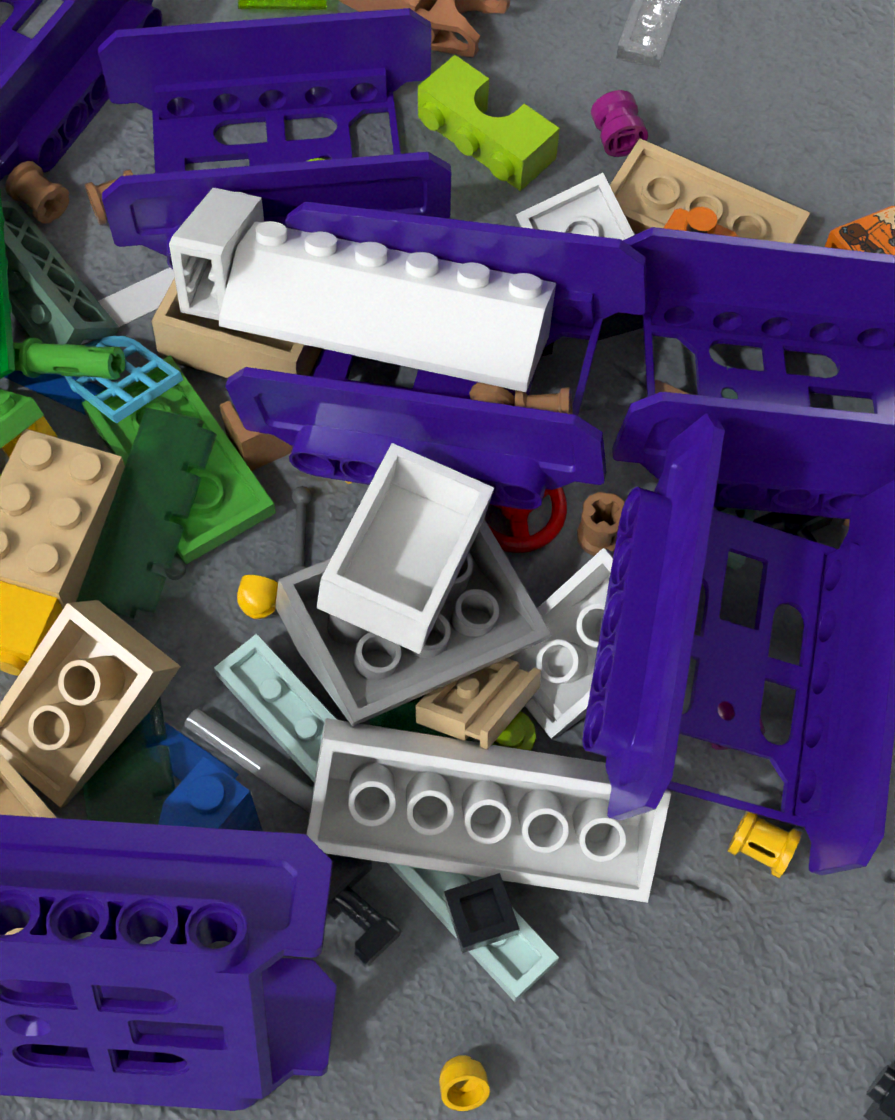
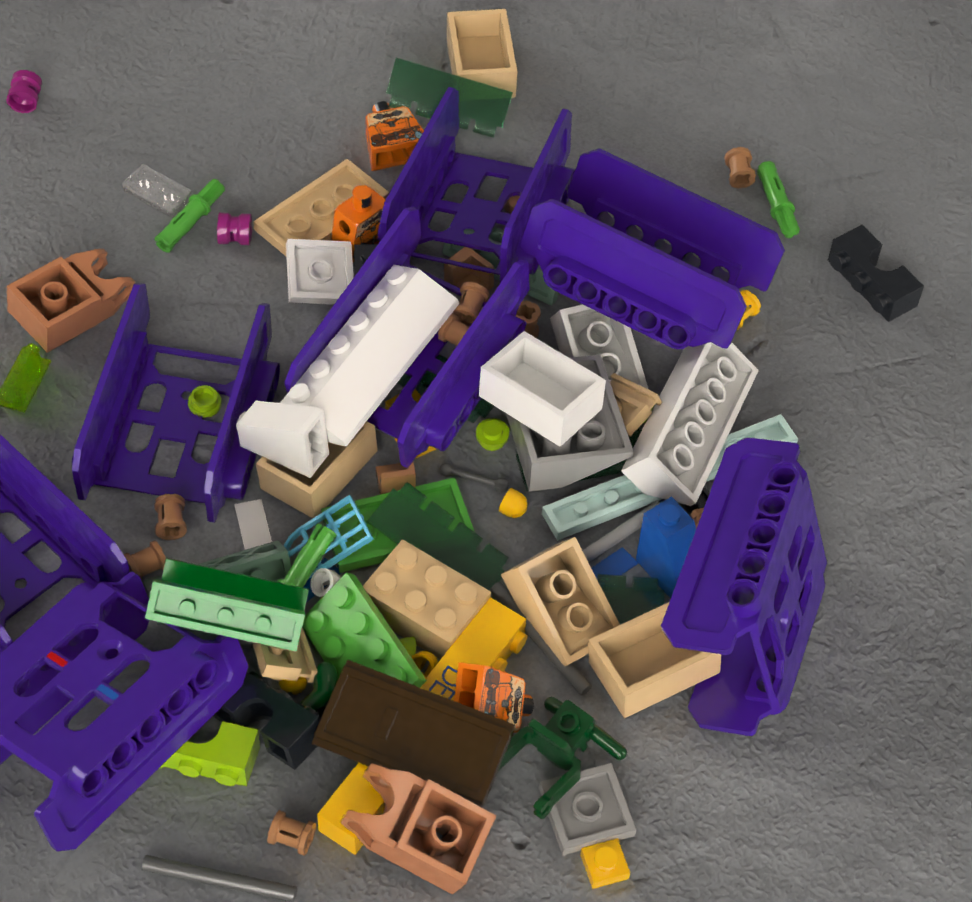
camera: 75 degrees left, 10 degrees down
(55, 398) = (322, 578): none -> white hinge
(463, 1083) = (835, 477): yellow hinge -> none
(481, 913) = (751, 428): black plate -> none
(511, 146) = (183, 309): lime arch -> none
(625, 71) = (189, 215): none -> bright green axle

